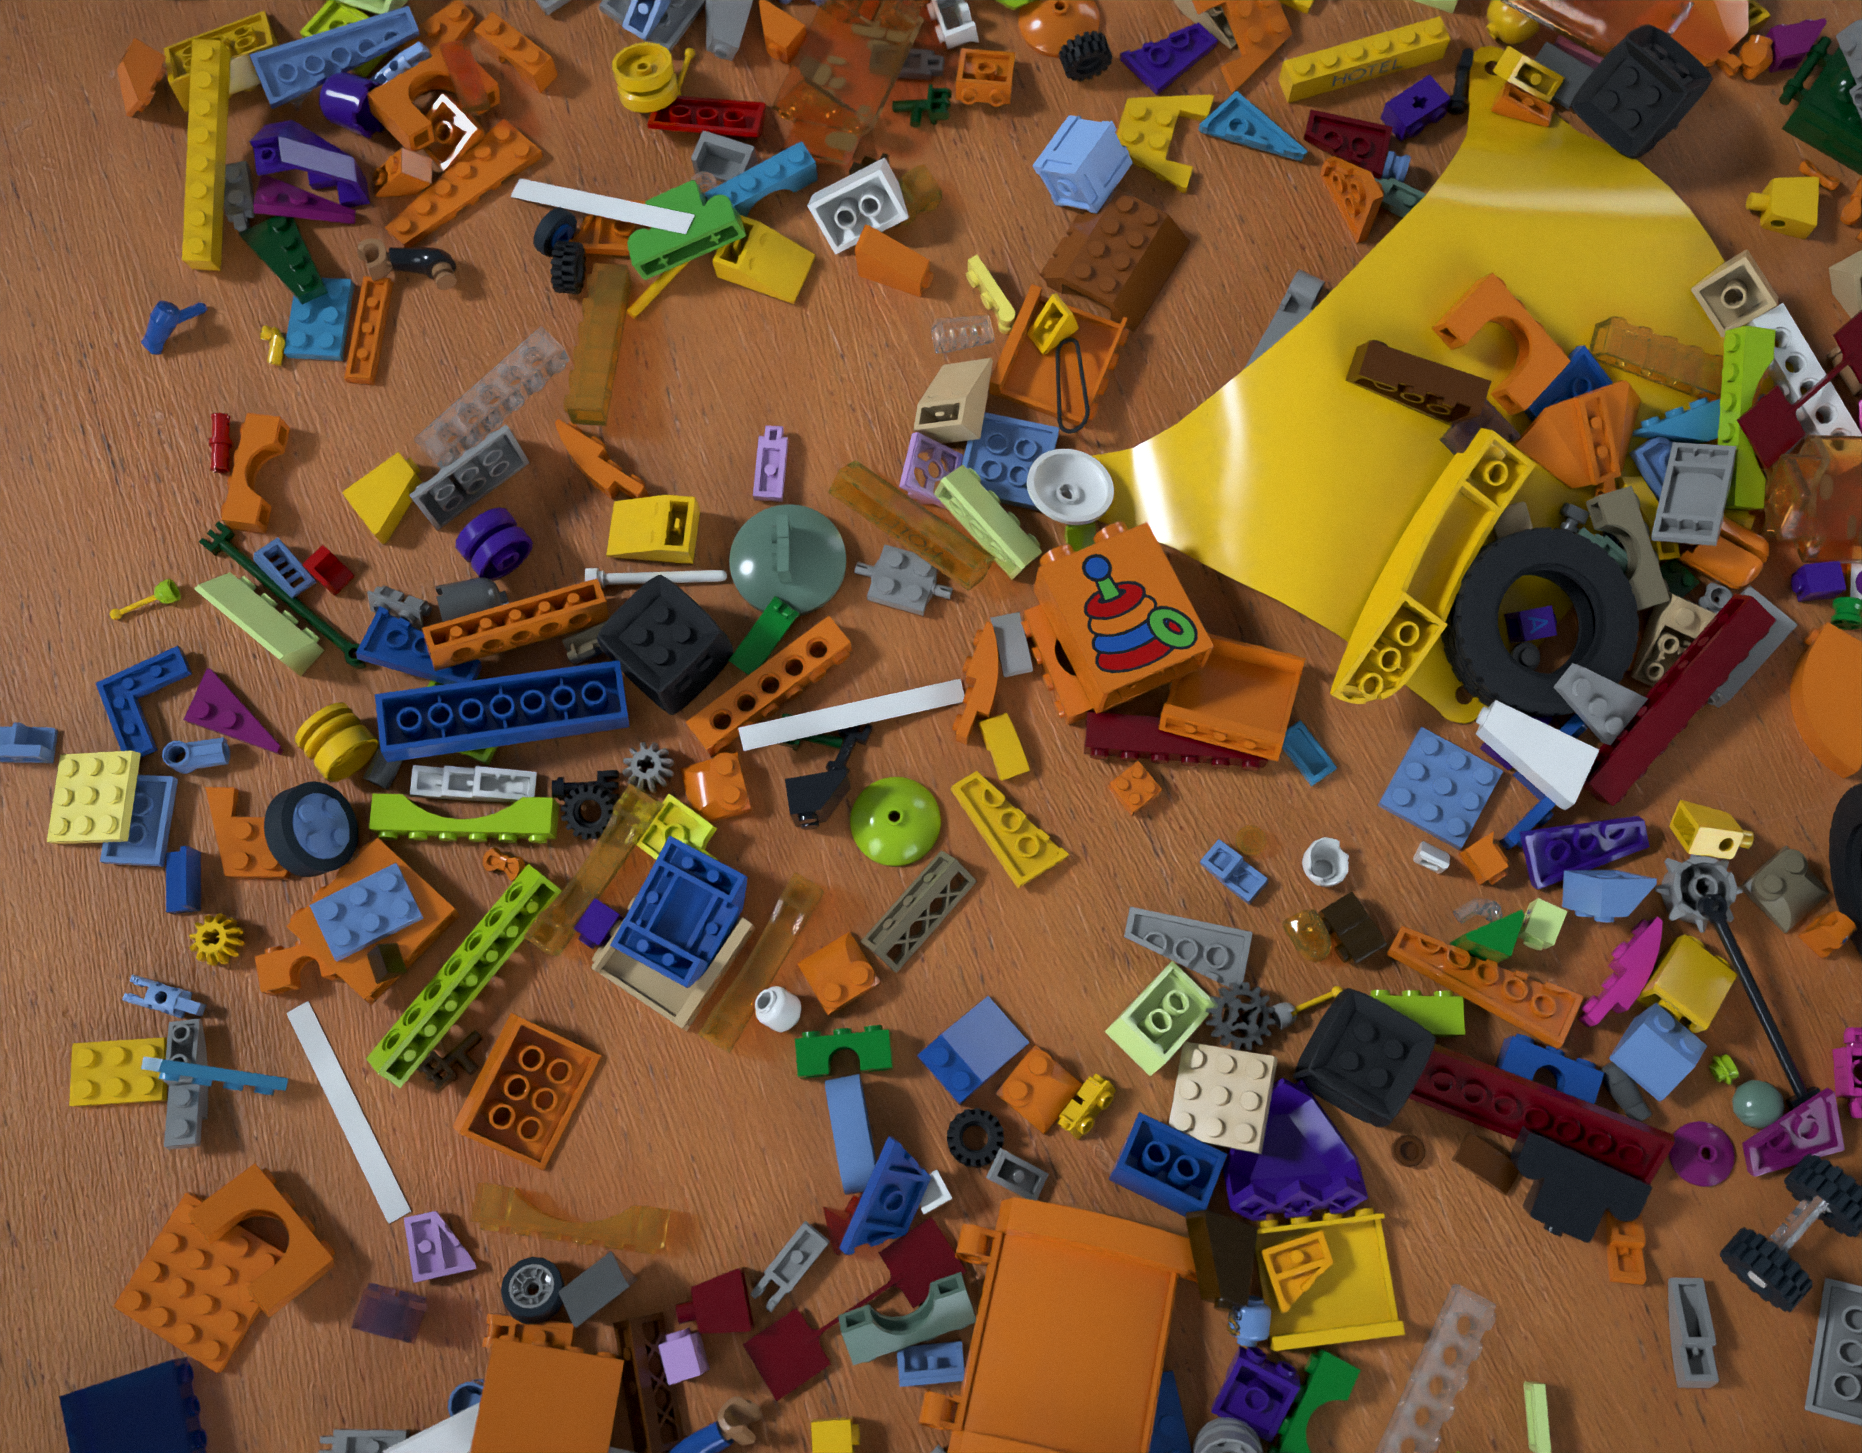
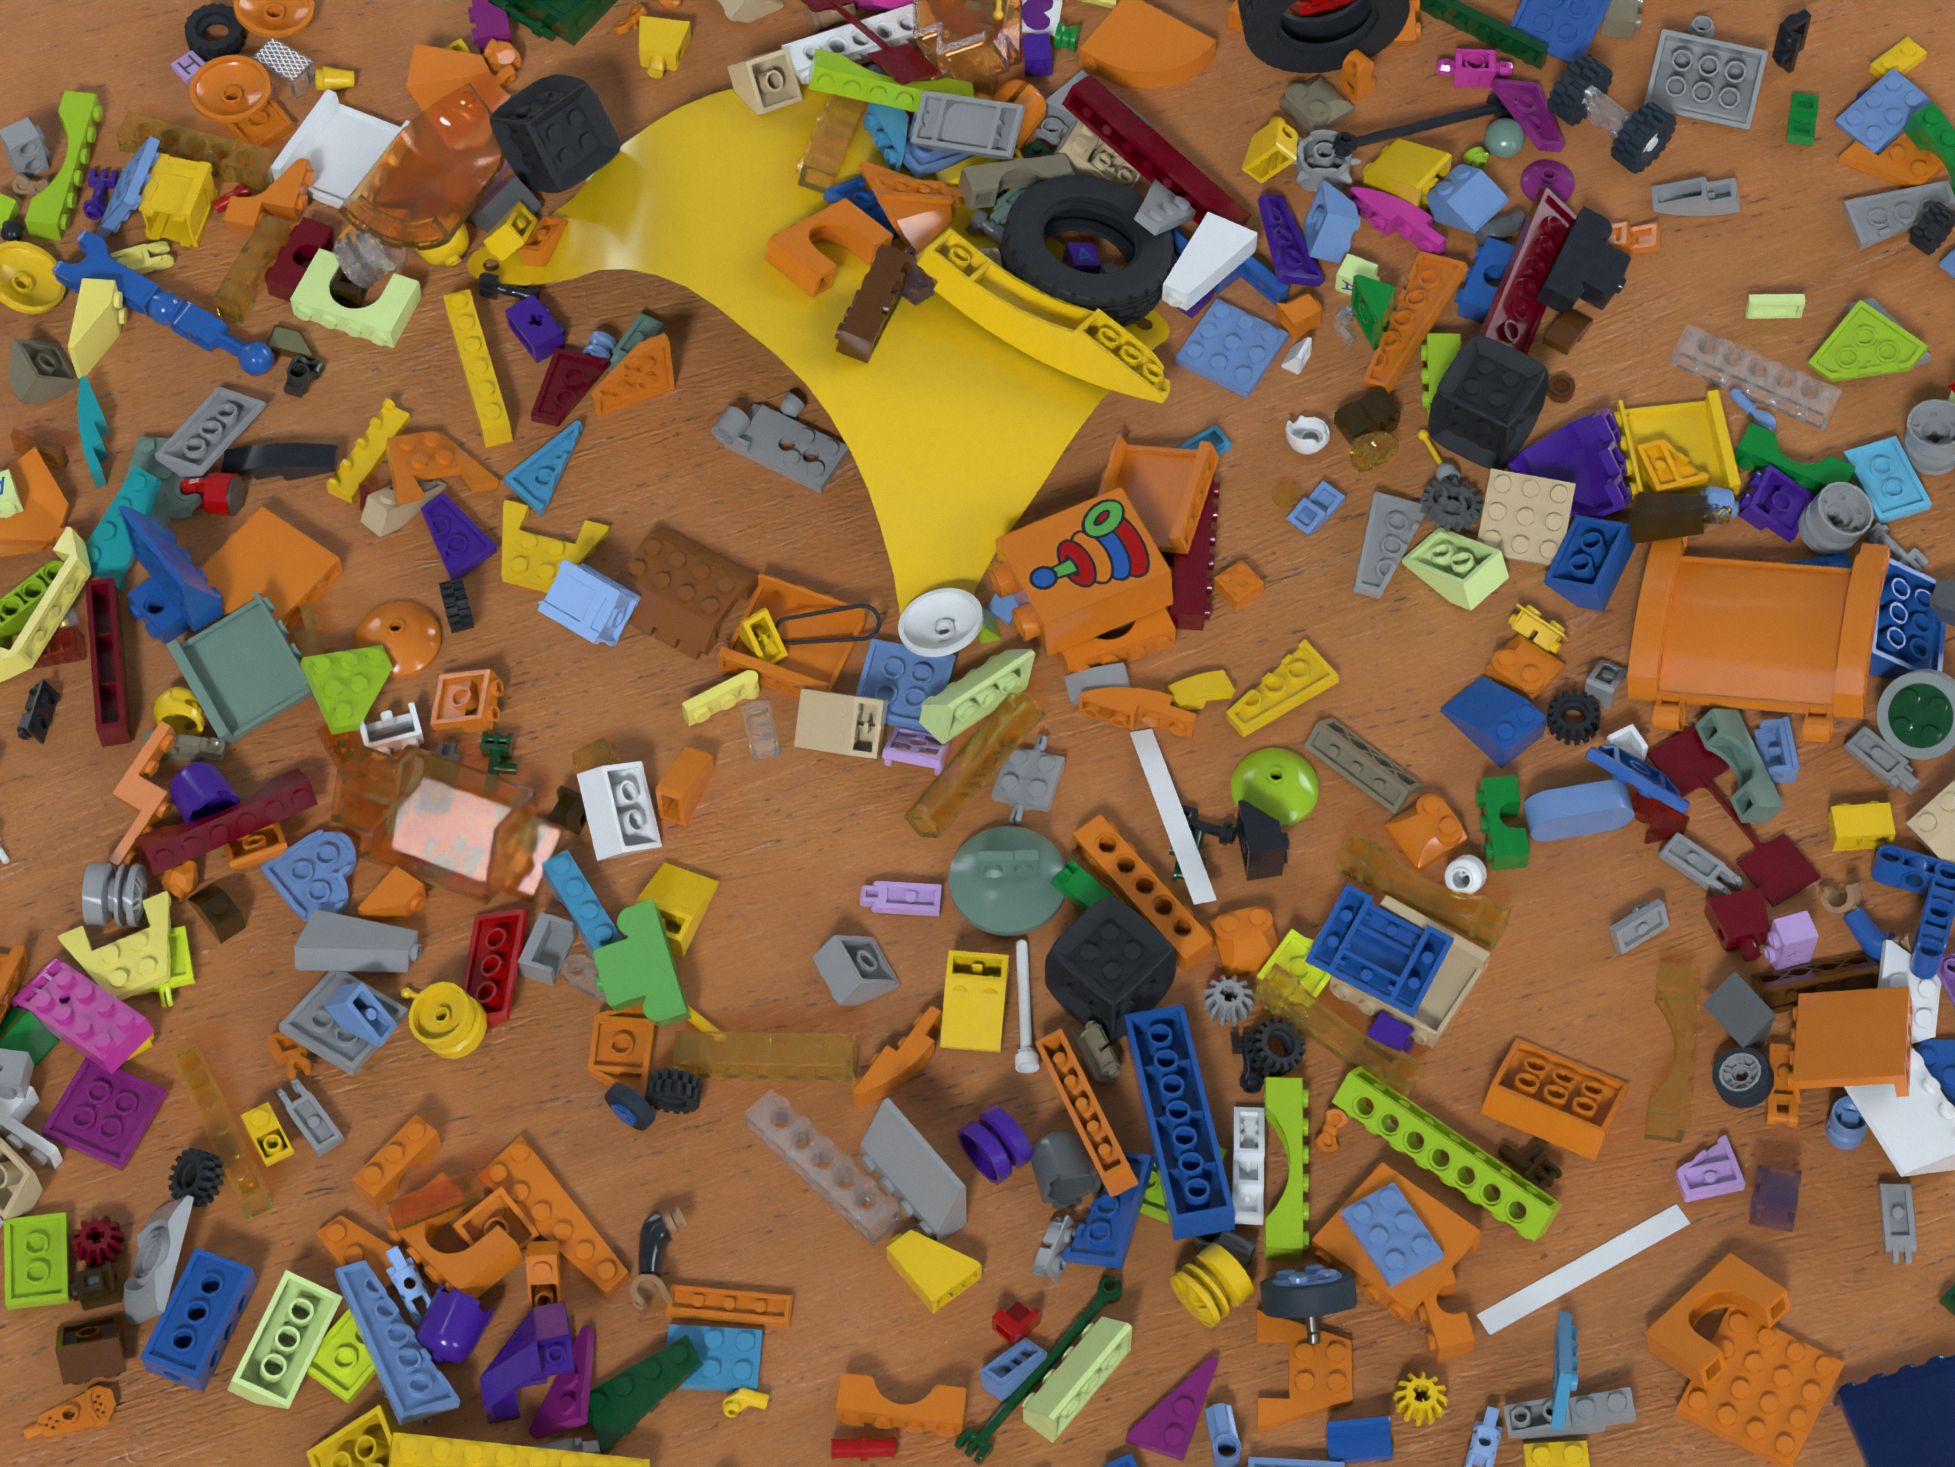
camera: 95 degrees left, 15 degrees down
(386, 962) = (1444, 1211): dark brown slope -> none
(603, 206) = (604, 1058): white sticker -> none
(694, 424) = (855, 969): none -> light grey slope
(725, 1202) = (1639, 926): none -> light grey hinge
(1379, 1388) = (1761, 418): none -> medium blue piece

